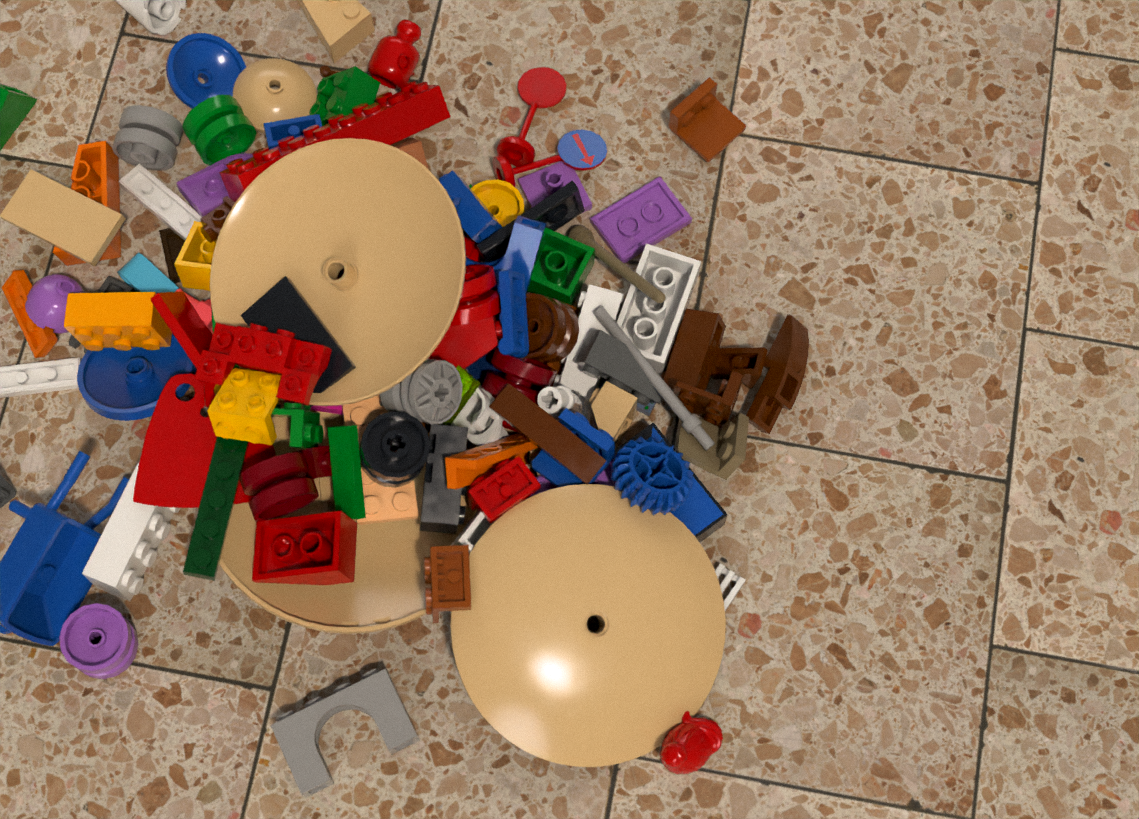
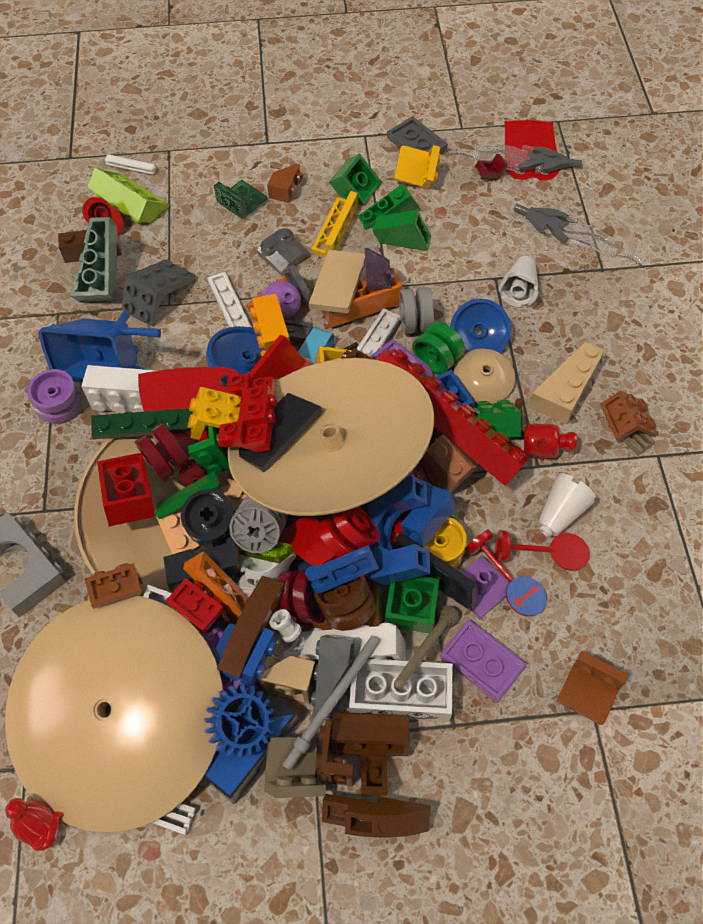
camera: 75 degrees right, 10 degrees down
(29, 272) = (294, 277): none -> flat silver tile
(70, 161) = (378, 271): none -> clear purple slope
(488, 68) = (564, 504): none -> white cone

